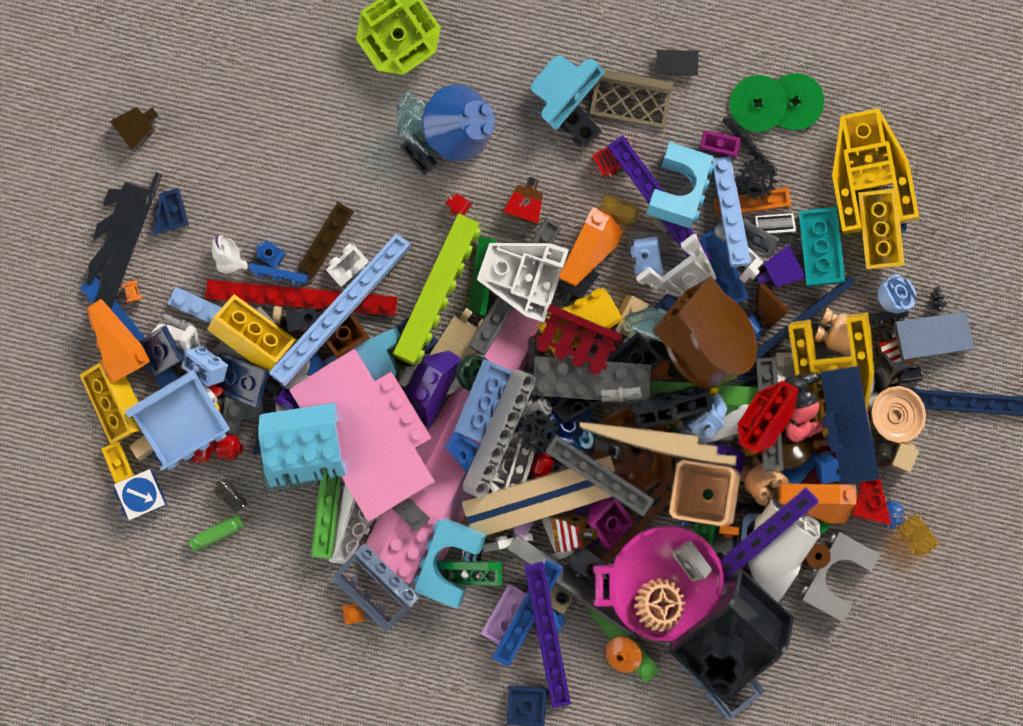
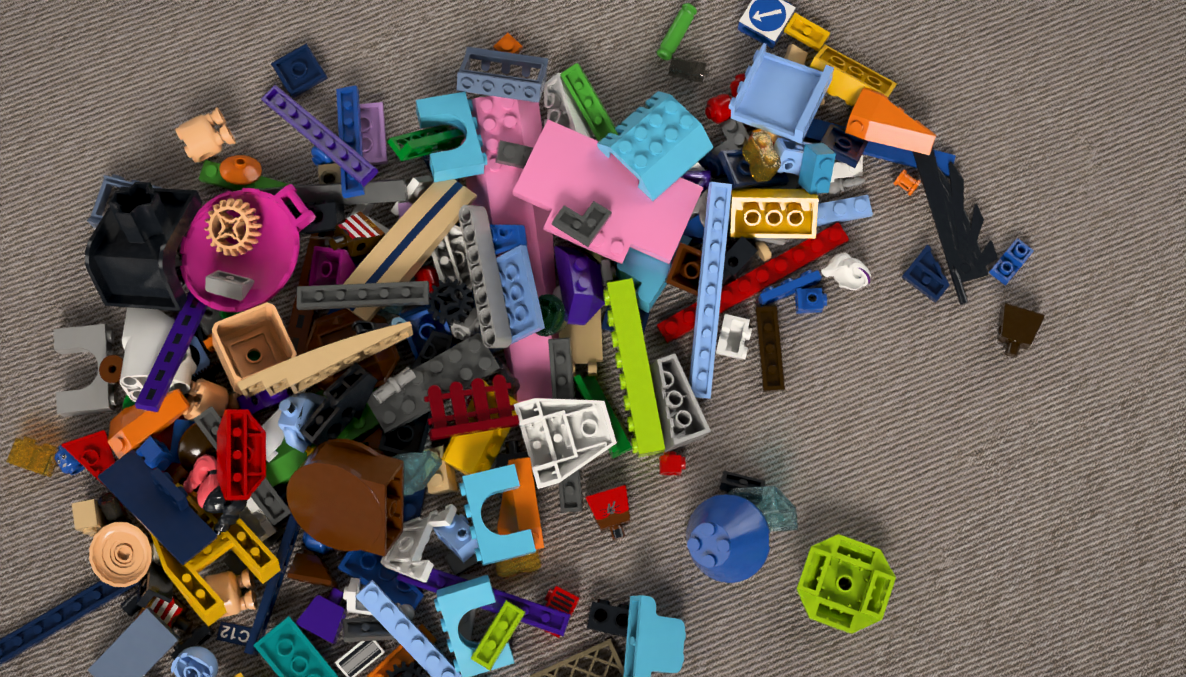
camera: 145 degrees right, 10 degrees down
(100, 179) = (1011, 261): none -> blue slope
(196, 341) = (816, 168): none -> dark azure brick
(229, 382) = (761, 156): none -> clear yellow brick
(266, 404) = (714, 165): none -> dark blue tile
(403, 414) = (584, 227): none -> dark grey plate
(425, 241) = (676, 404): none -> light grey wedge
(613, 276) = (492, 546): none -> medium azure arch
(635, 699) = (202, 137): none -> light nougat piece
(668, 166) = (498, 635): none -> lime tile
(852, 302) = (233, 633): none -> dark blue sticker

